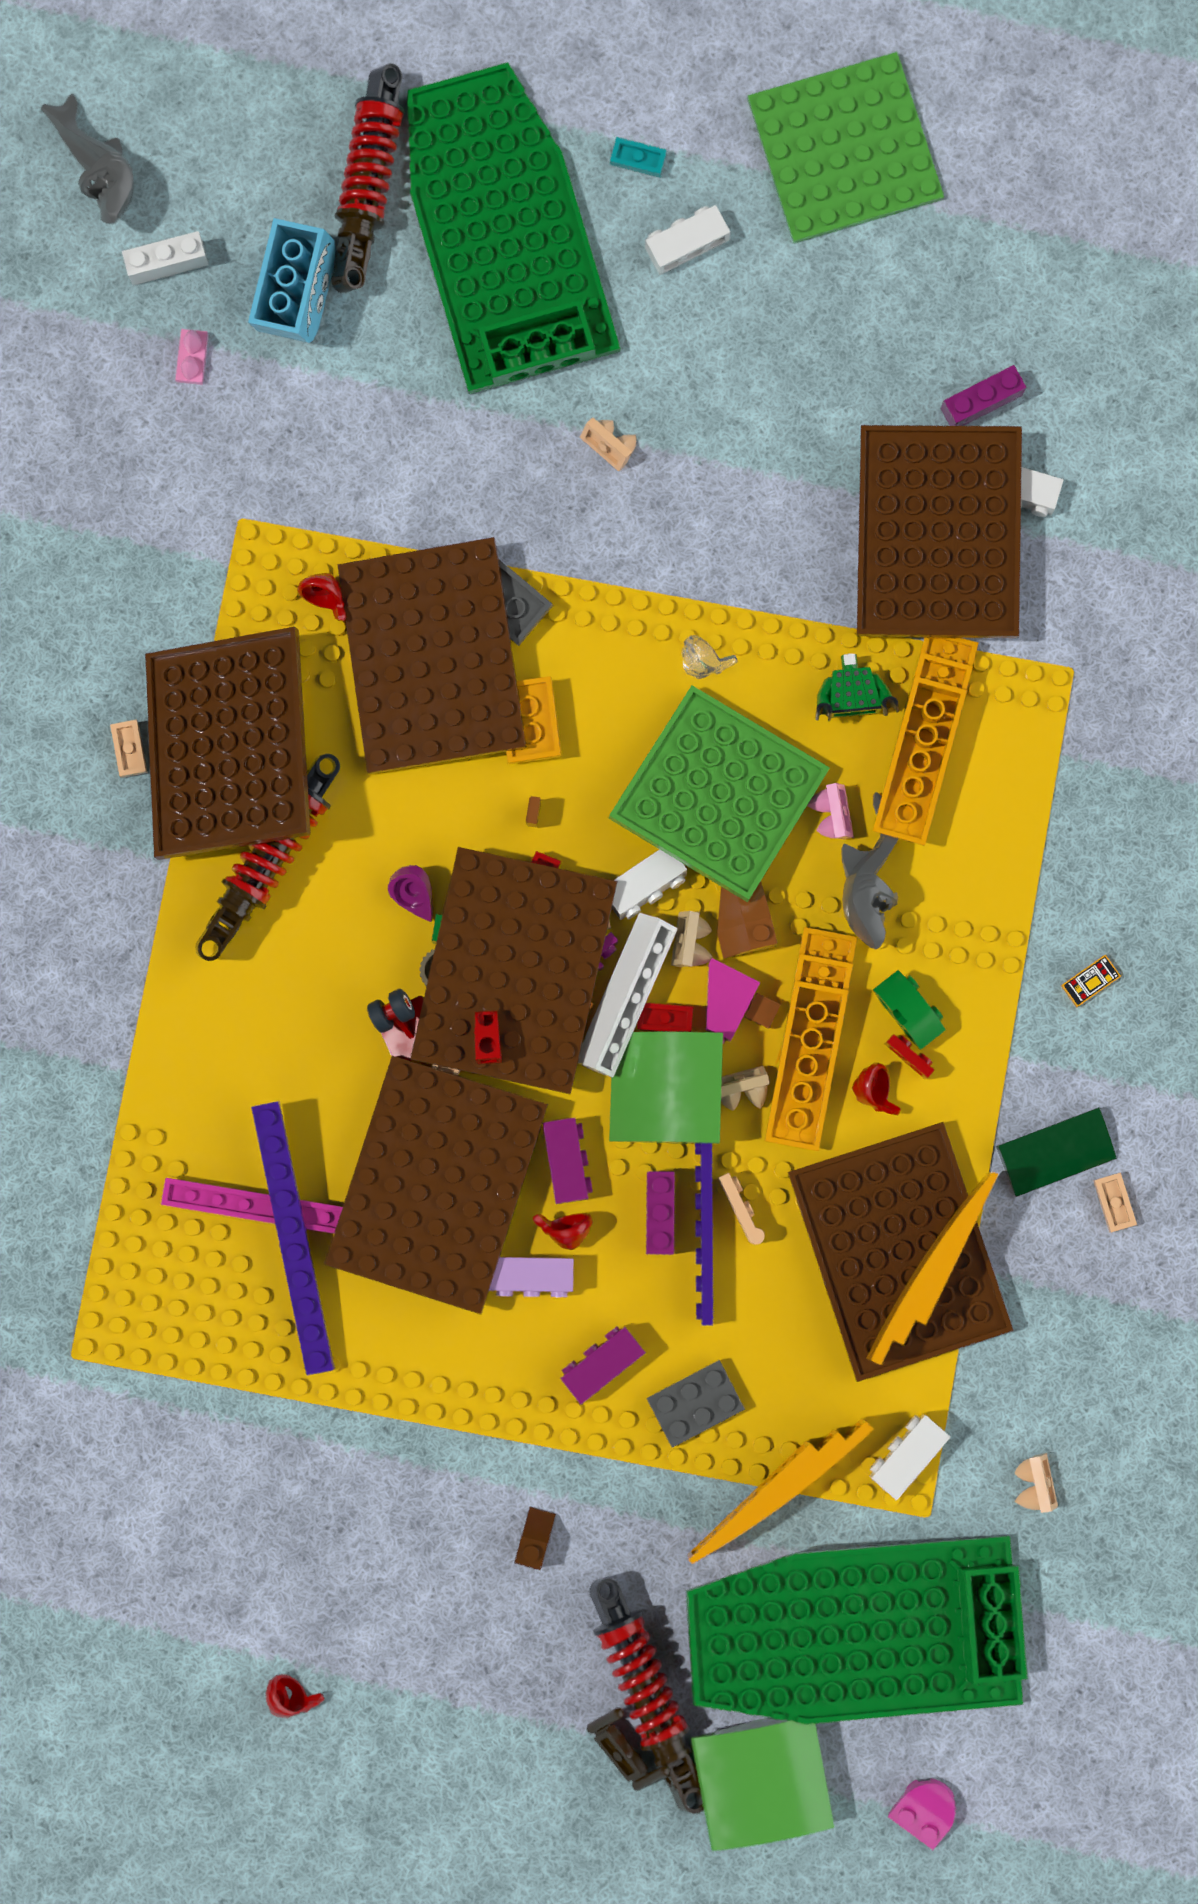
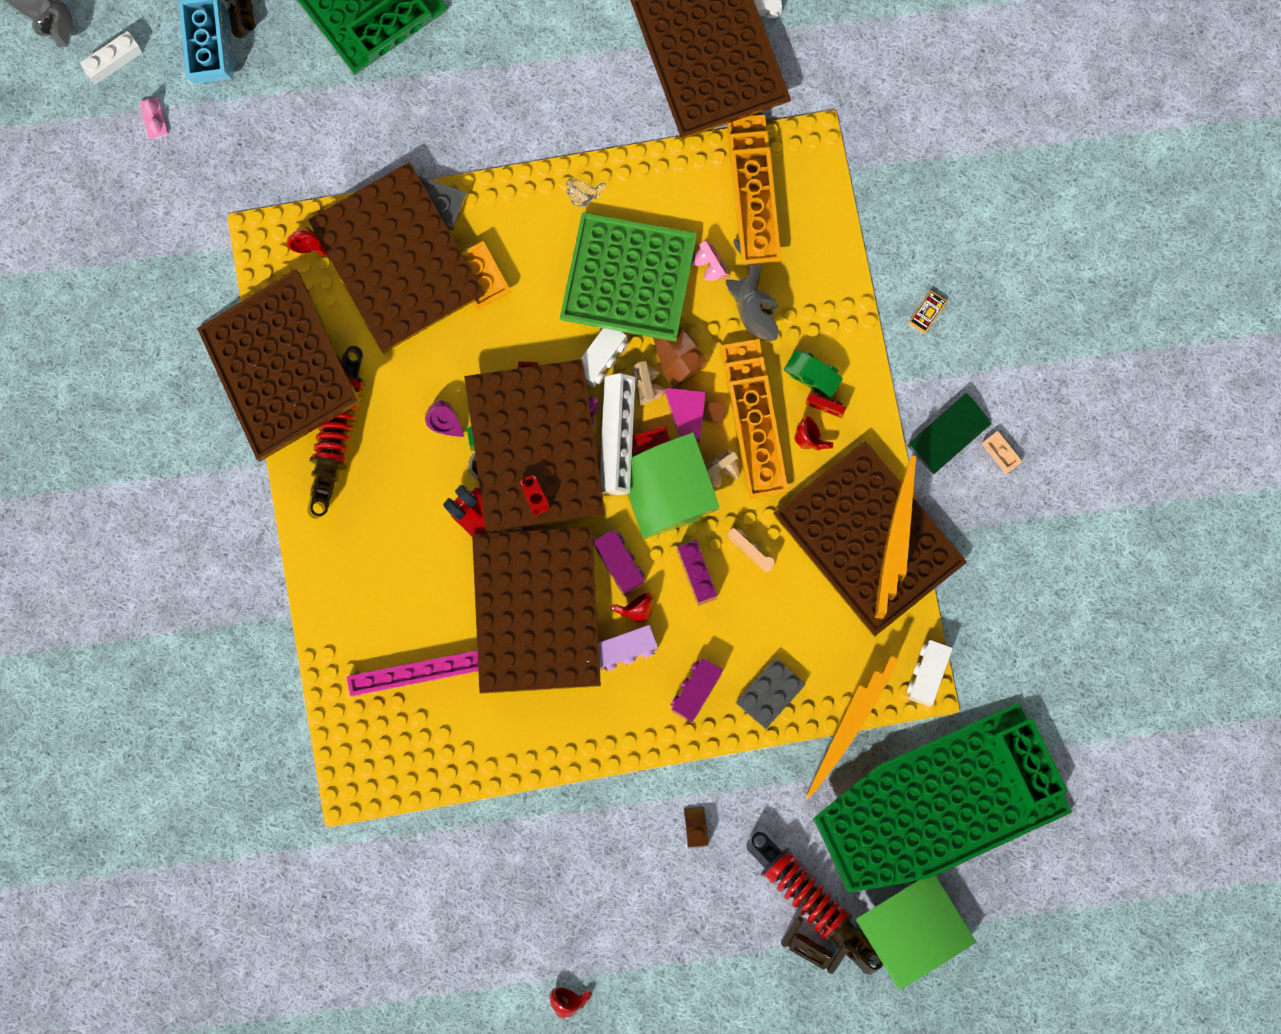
camera: 25 degrees left, 5 degrees down
(128, 748) = (209, 396): light nougat plate -> none
(293, 1238) = (450, 683): dark purple plate -> none
(533, 811) = (506, 336): dark orange tile -> none
(601, 439) = (463, 75): light nougat tile -> none
(704, 1229) = (731, 573): dark purple plate -> none
(853, 692) = (694, 177): green torso -> none
(925, 1811) = (1034, 910): dark pink slope -> none
(1042, 1495) = (1029, 667): light nougat tile -> none

